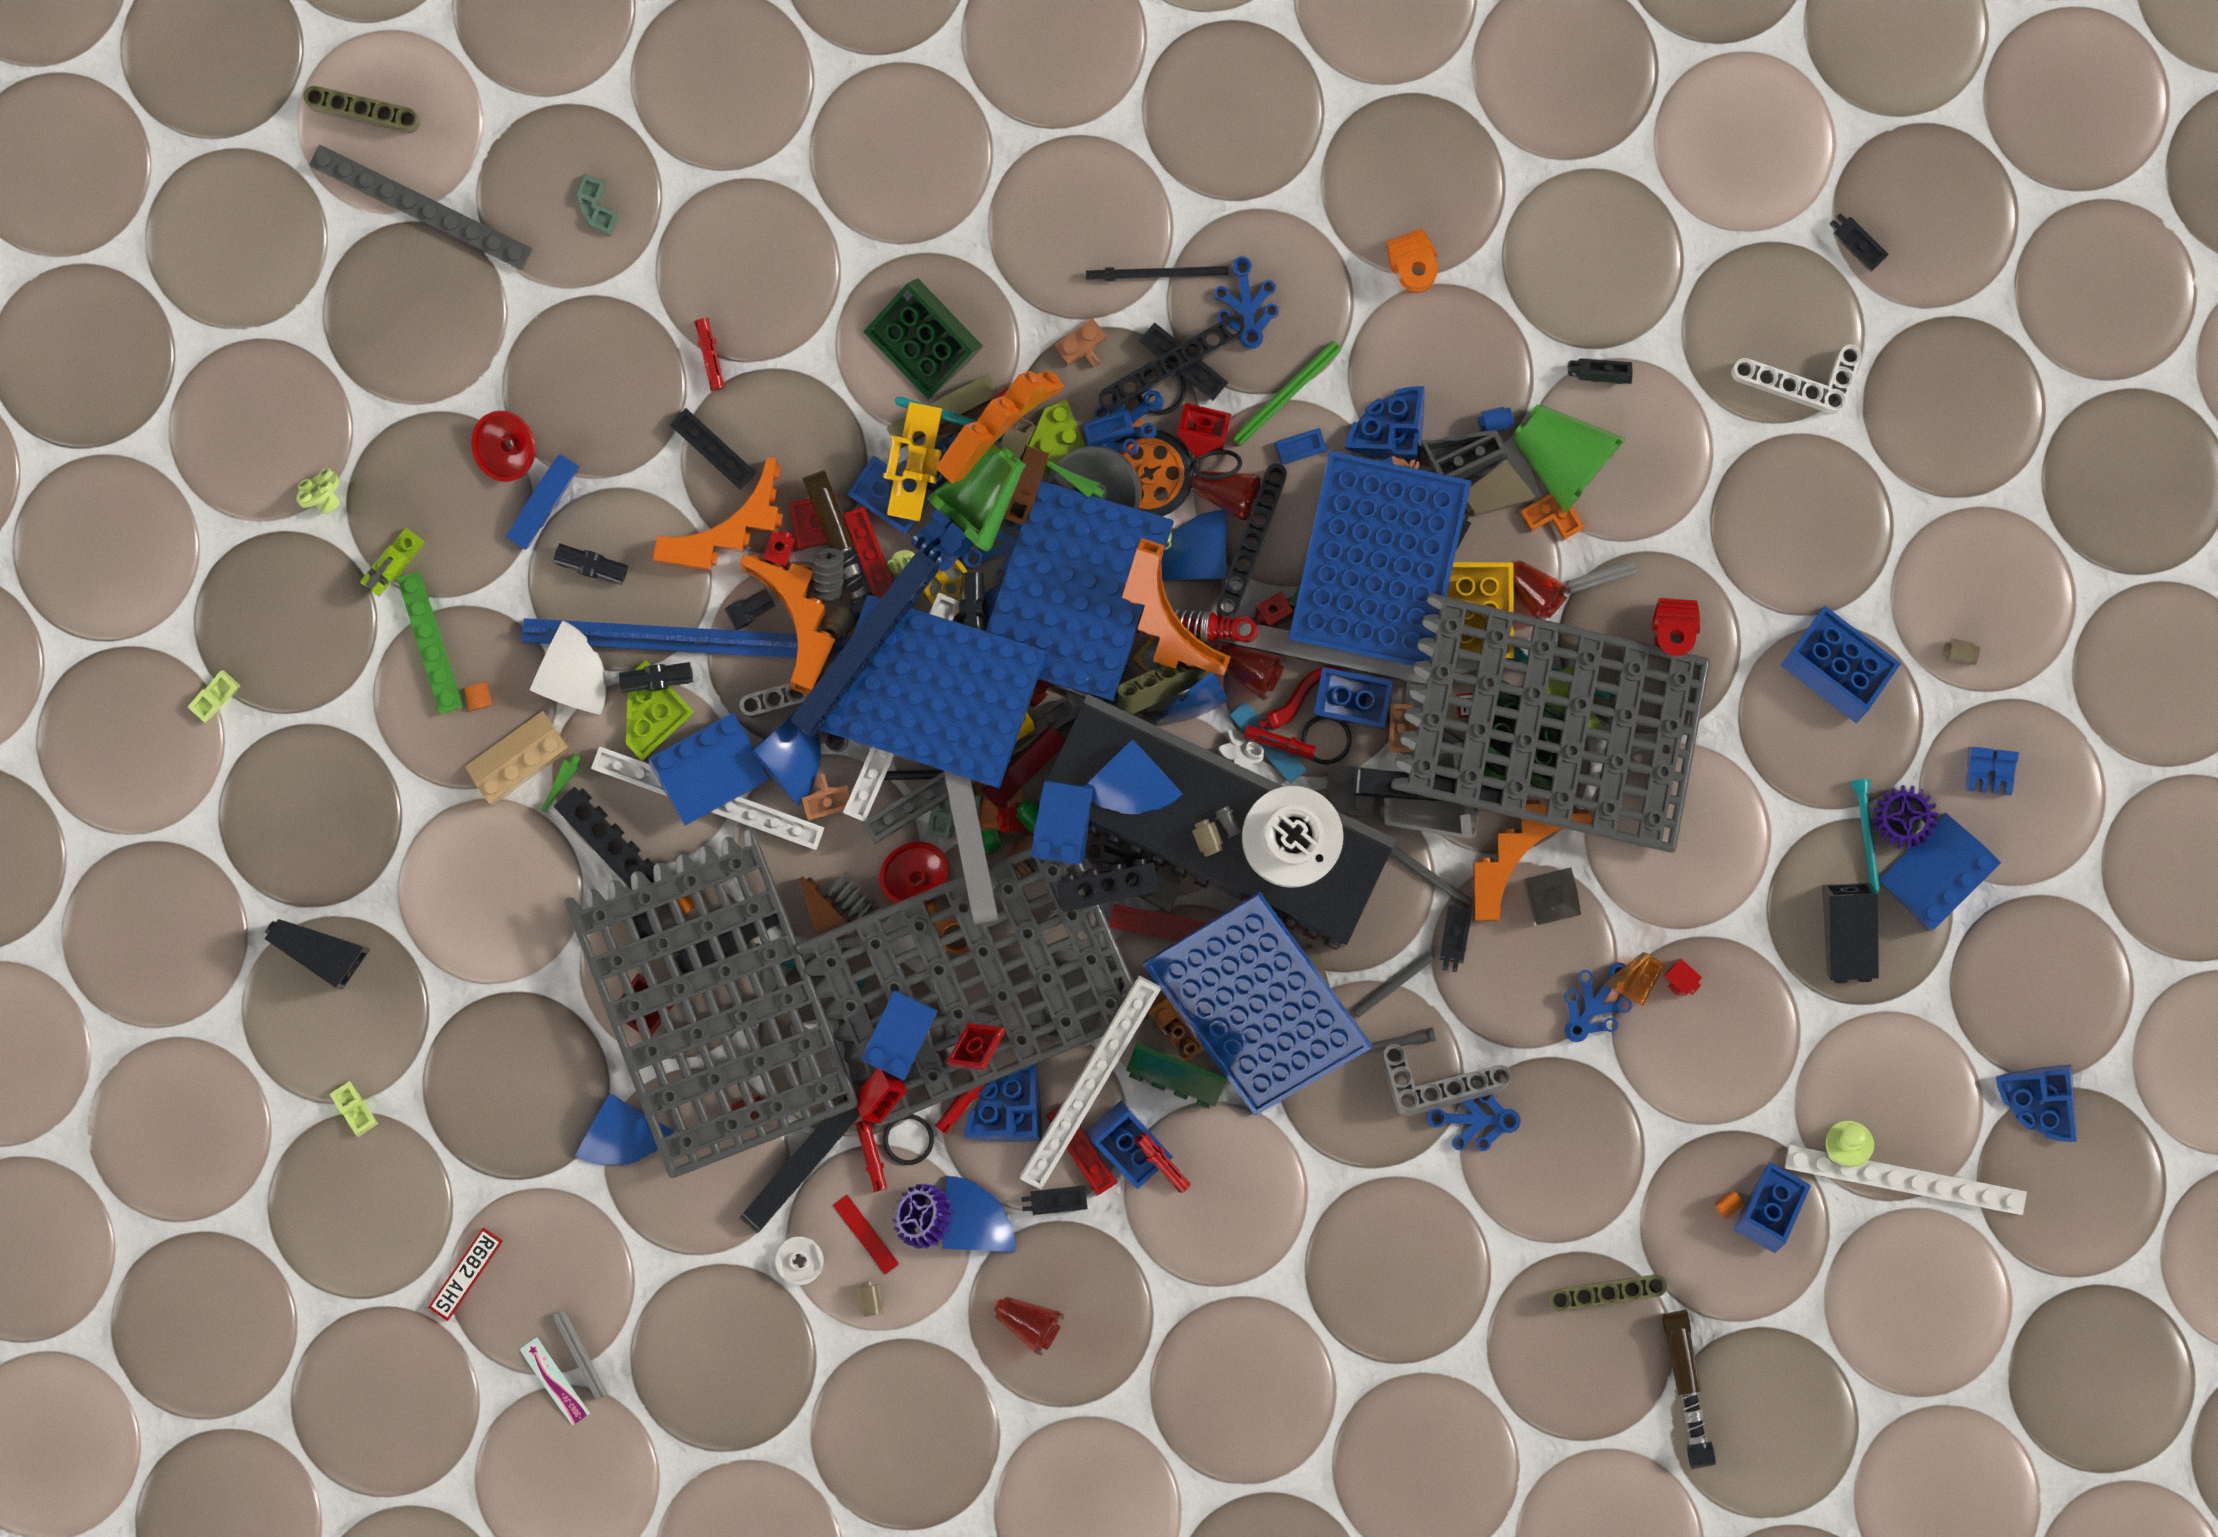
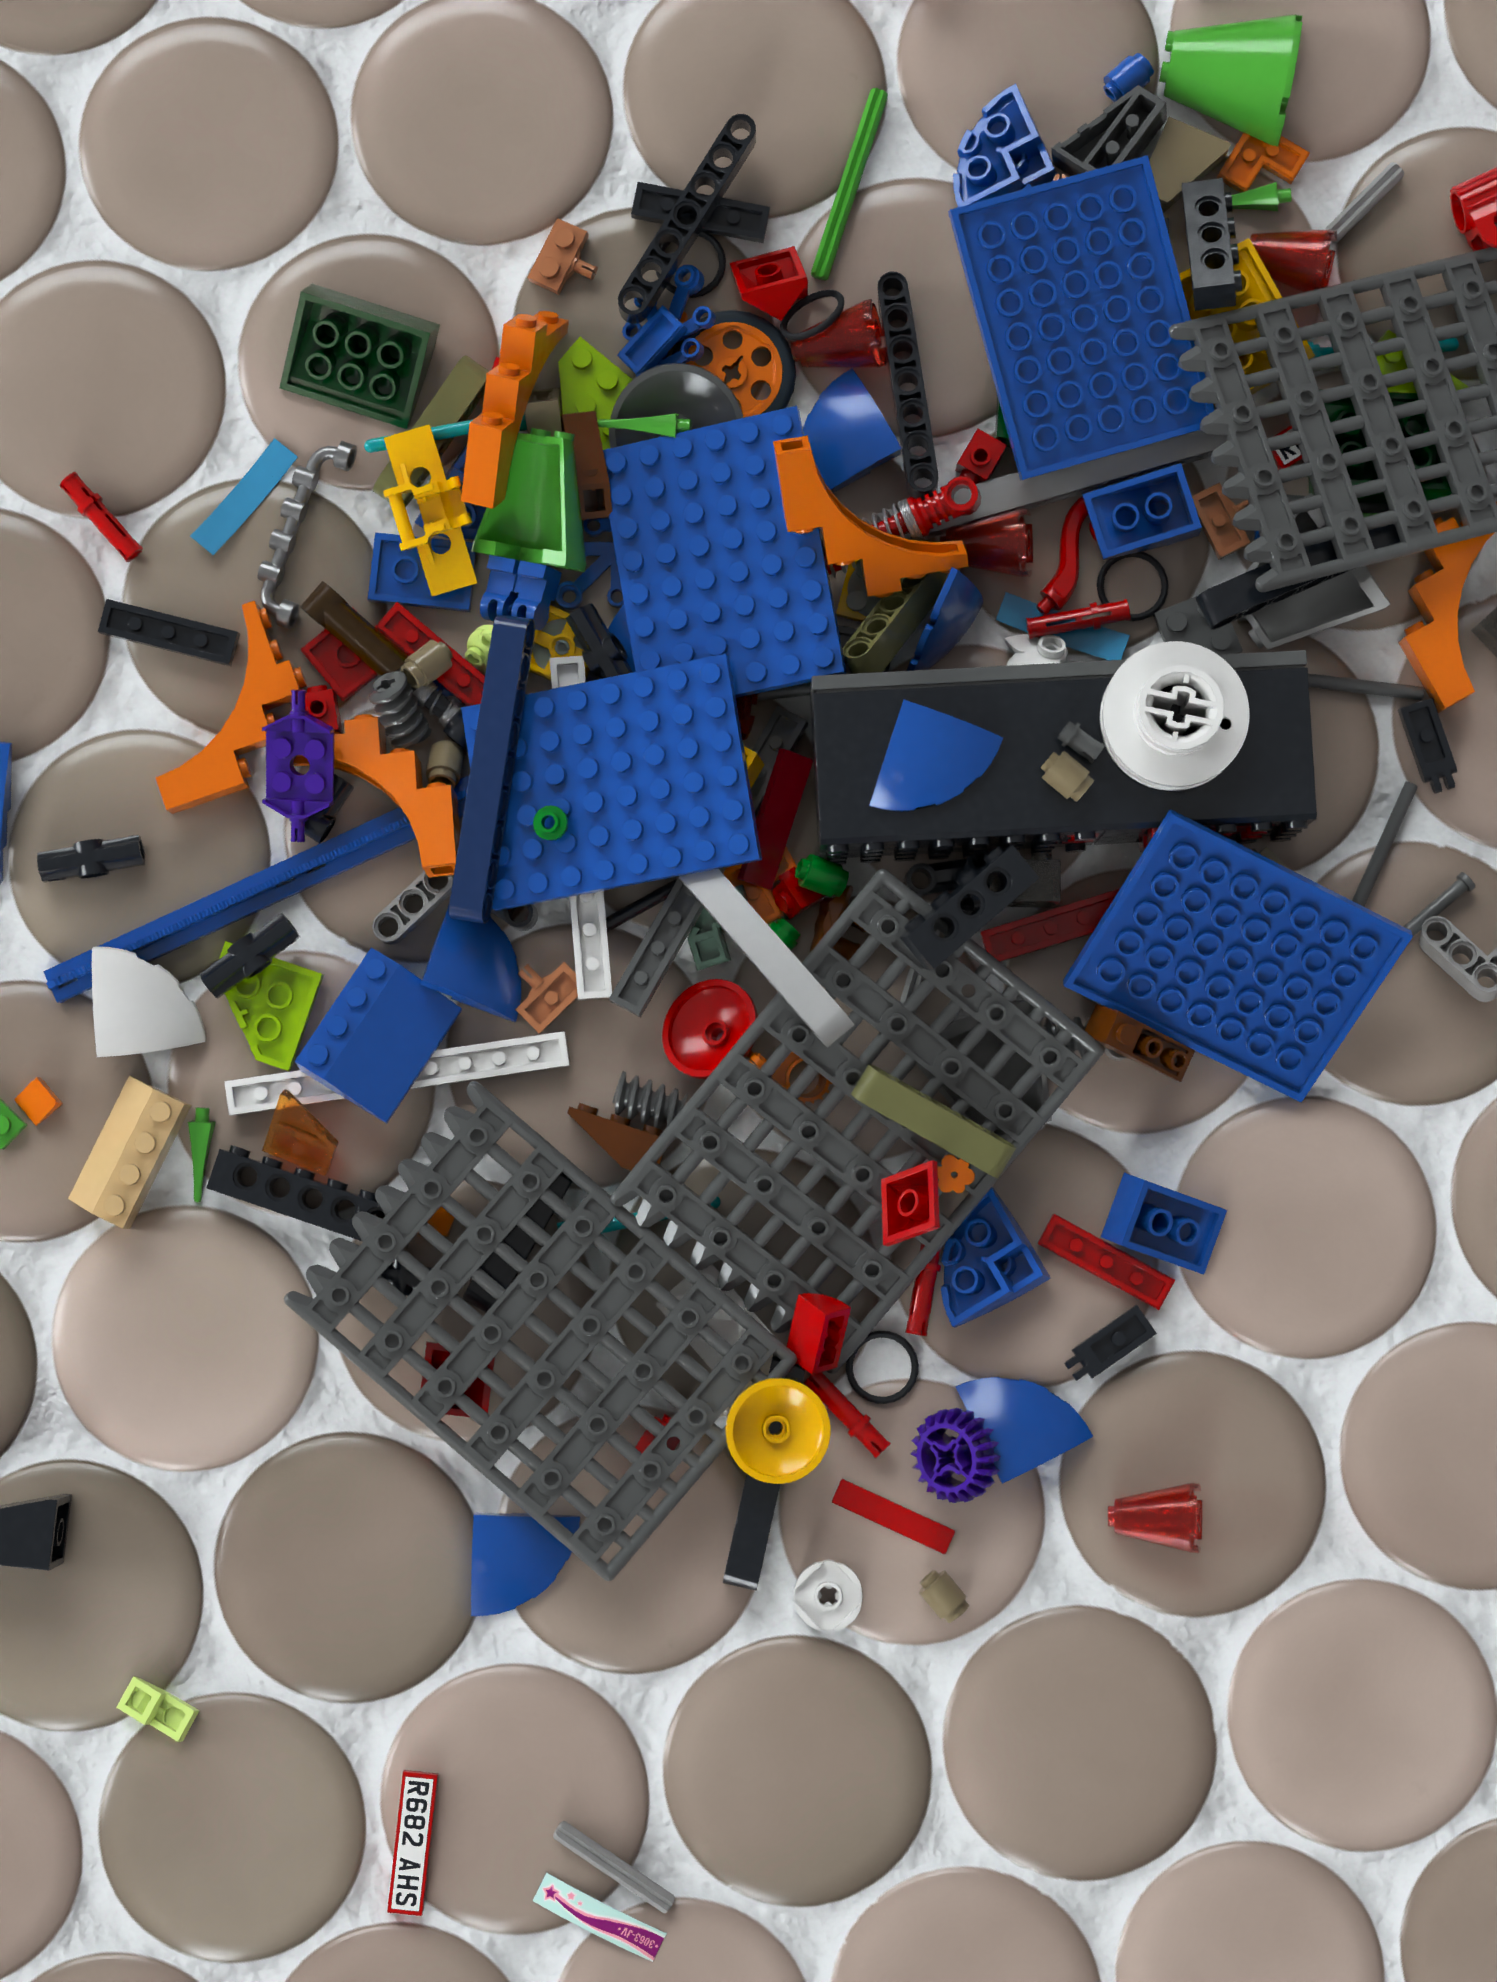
camera: 25 degrees left, 0 degrees up
(627, 805) = (299, 1136): none -> clear orange wing
(735, 590) = (286, 789): none -> dark purple plate
(805, 388) = (244, 497): none -> dark azure sticker
(827, 1158) = (797, 1445): none -> yellow dish
(831, 414) = (295, 511): none -> flat silver bar
(861, 556) = (427, 664): none -> dark tan brick
(888, 701) = (559, 827): none -> green plate
(899, 1035) = (803, 1242): blue slope -> none
(1007, 1046) = (957, 1183): none -> orange plant
(1017, 1004) = (933, 1120): none -> olive beam
(1062, 823) = (869, 856): blue slope -> none
(1090, 1082) = (1077, 1170): white plate -> none
(1111, 274) = (550, 152): black bar -> none
(1156, 1155) = (1208, 1219): red pin -> none
(1176, 1075) = (1178, 1103): dark green slope -> none
(1247, 307) = (741, 102): blue plant -> none
(1300, 446) = (902, 240): blue tile -> none
(1494, 524) = (1209, 244): none -> black brick
(1539, 540) = (1262, 198): none -> bright green piece

